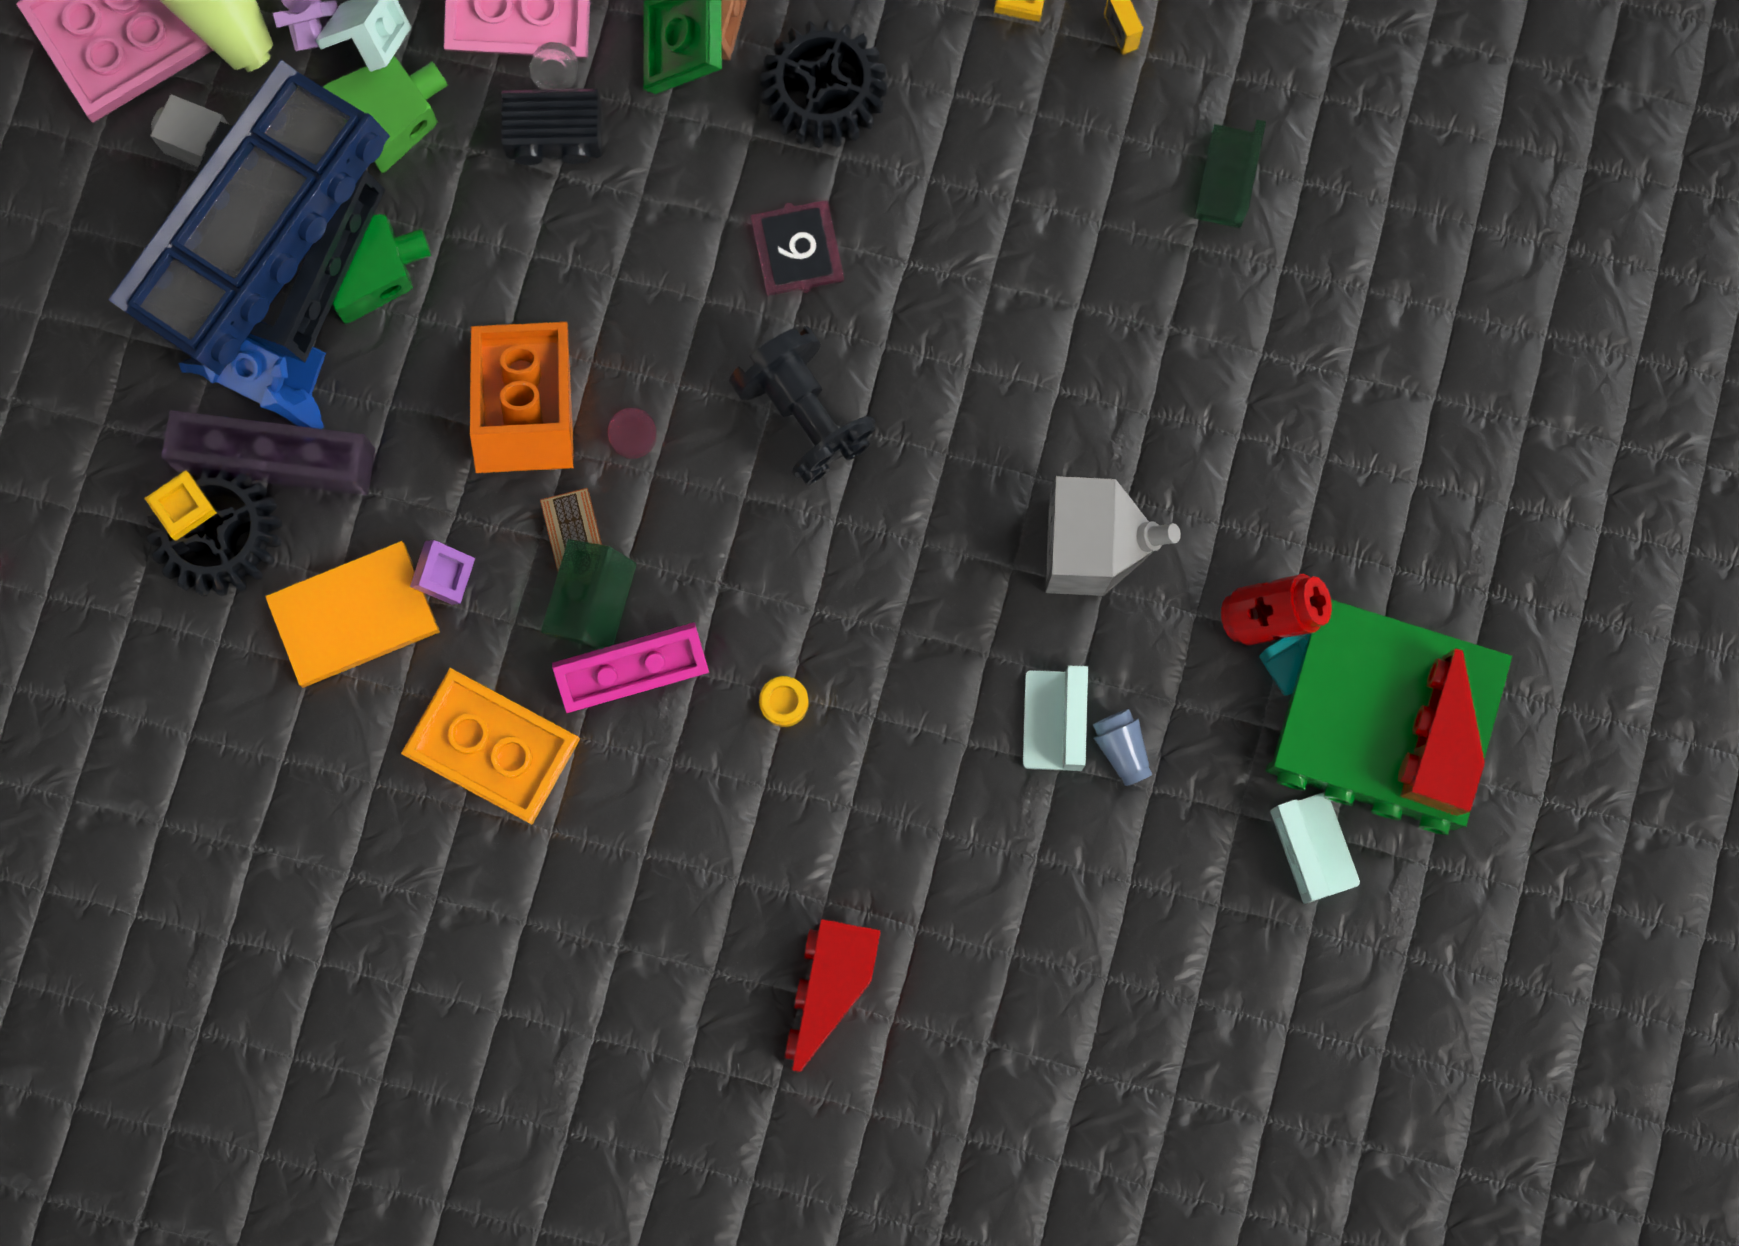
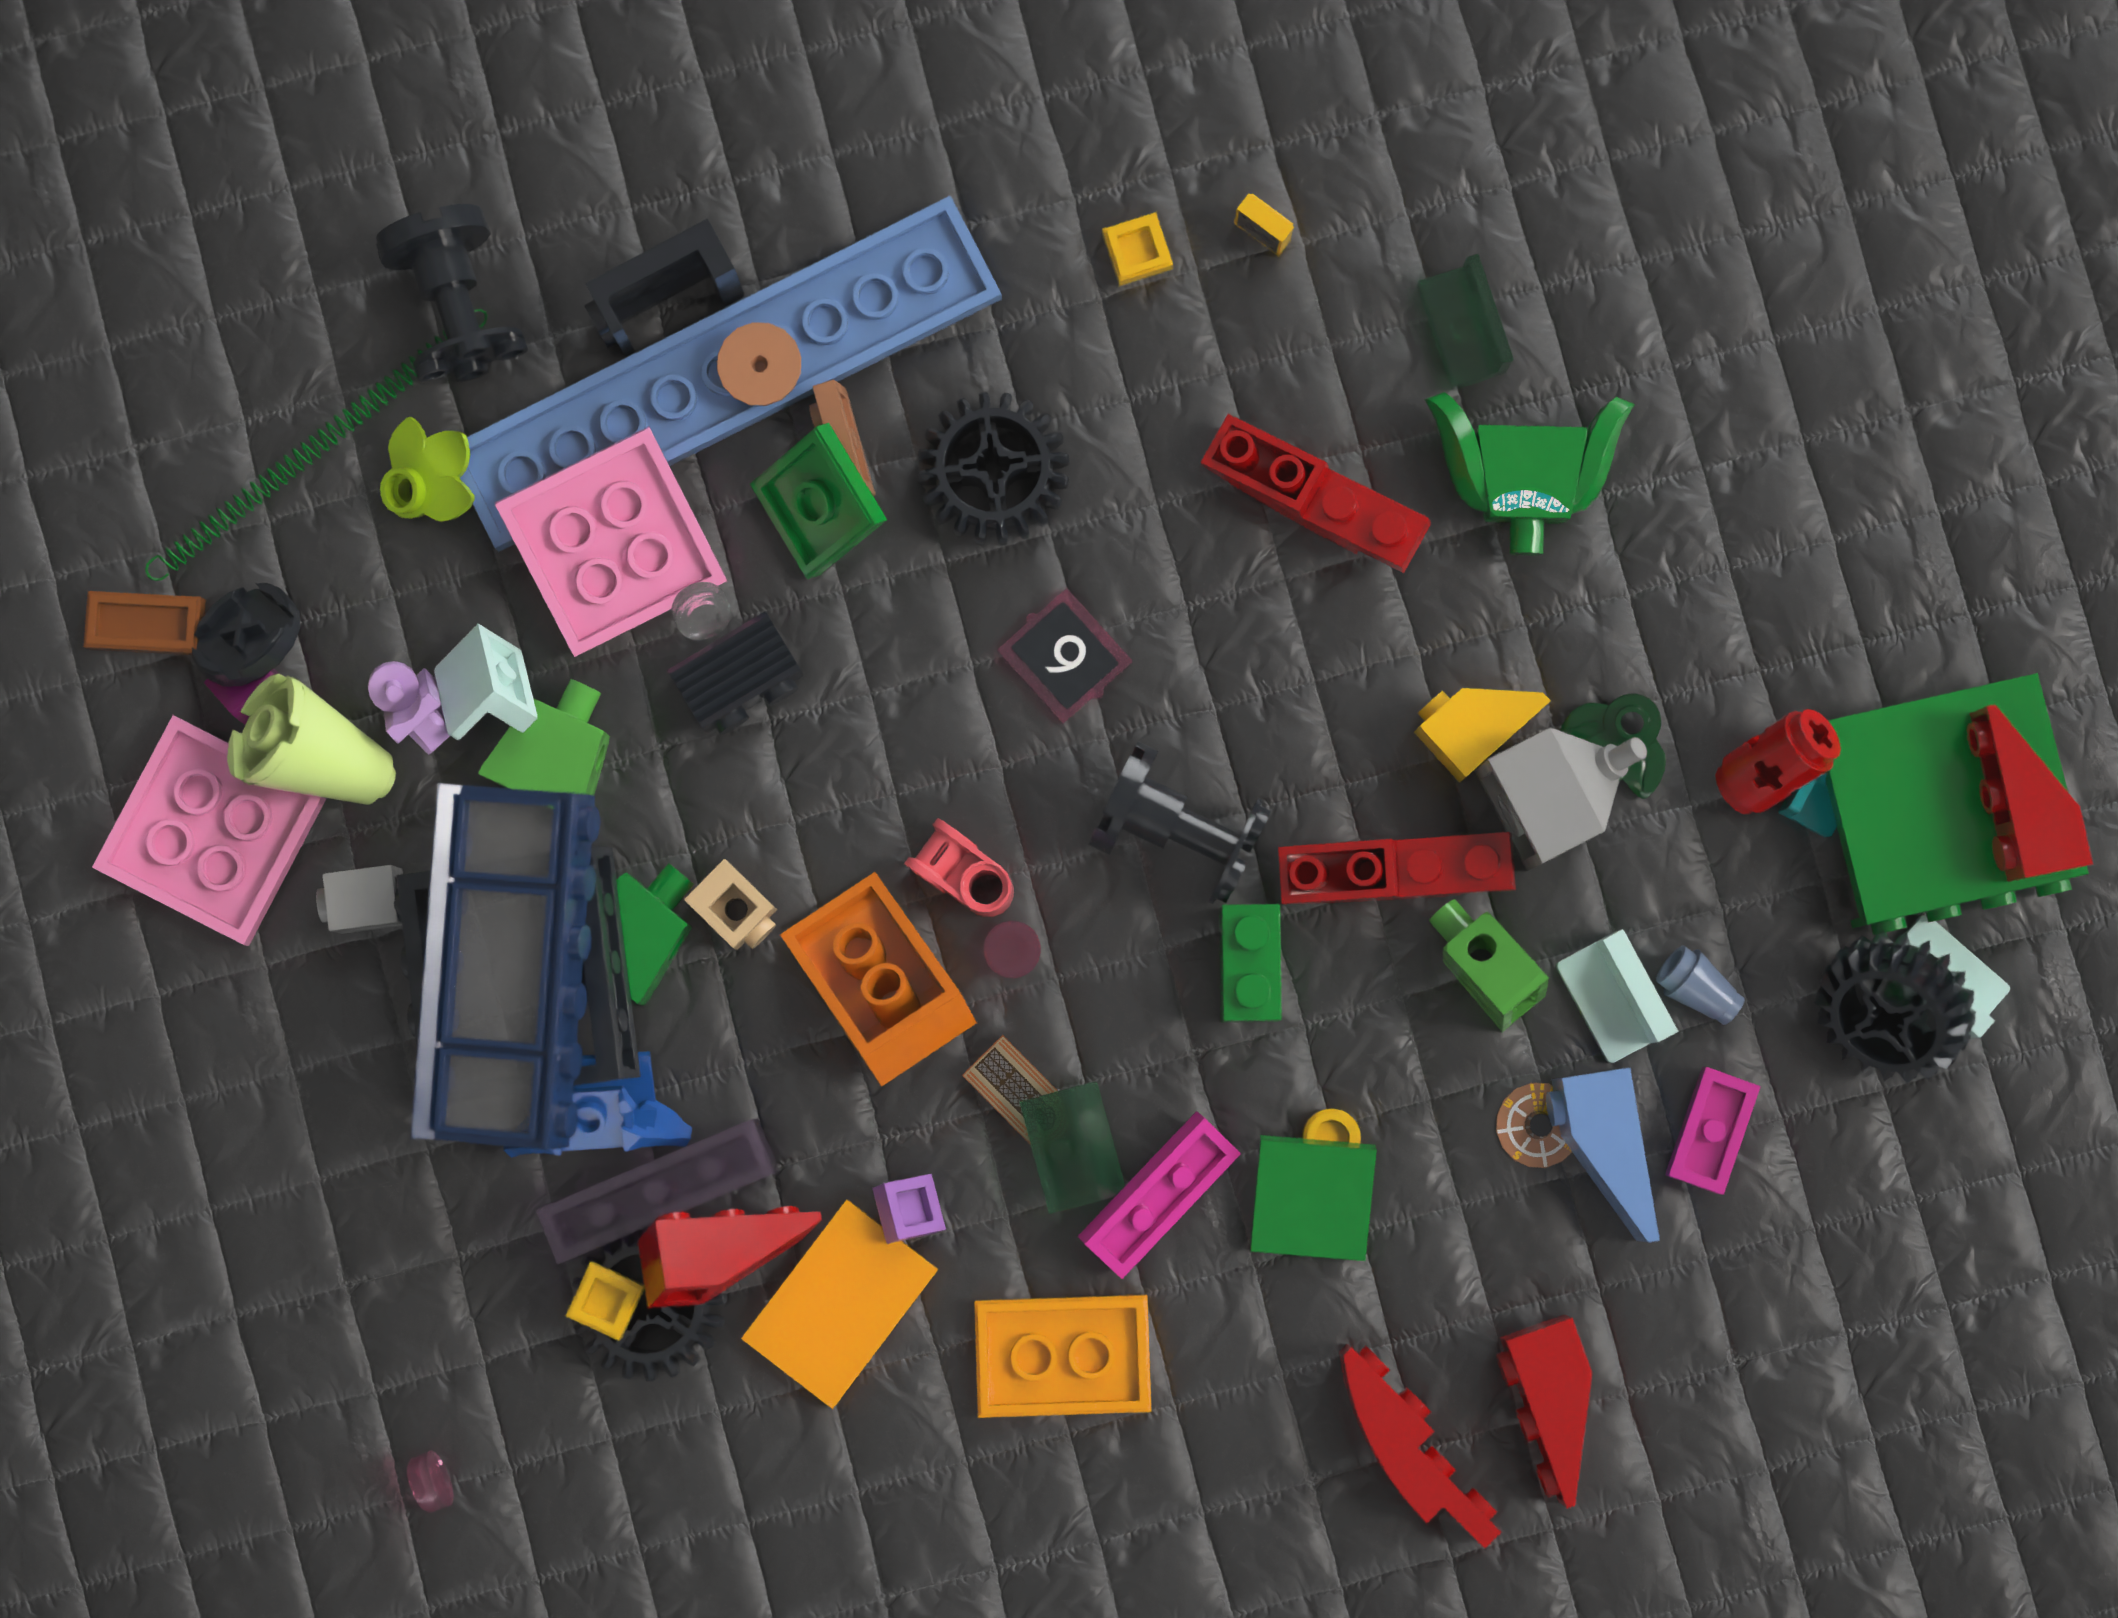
camera: 30 degrees left, 5 degrees up
(272, 514) = (701, 1257): none -> slope
(443, 270) = (715, 894): none -> tan brick
(626, 350) = (959, 869): none -> coral piece
(697, 941) = (1394, 1433): none -> red slope
(742, 735) = (1313, 1198): none -> green tile
(797, 537) = (1250, 963): none -> green brick
(943, 782) = (1527, 1130): none -> nougat piece
(946, 532) = (1396, 868): none -> red slope
(974, 639) = (1502, 985): none -> bright green torso
(985, 813) = (1604, 1133): none -> medium blue slope
(1045, 230) = (1314, 494): none -> red slope
(1067, 453) = (1474, 724): none -> yellow slope
(1070, 858) = (1712, 1130): none -> dark pink plate
(1175, 560) = (1603, 726): none -> dark green plate
(1215, 301) = (1528, 471): none -> green torso
(1260, 839) = (1898, 988): none -> black gear

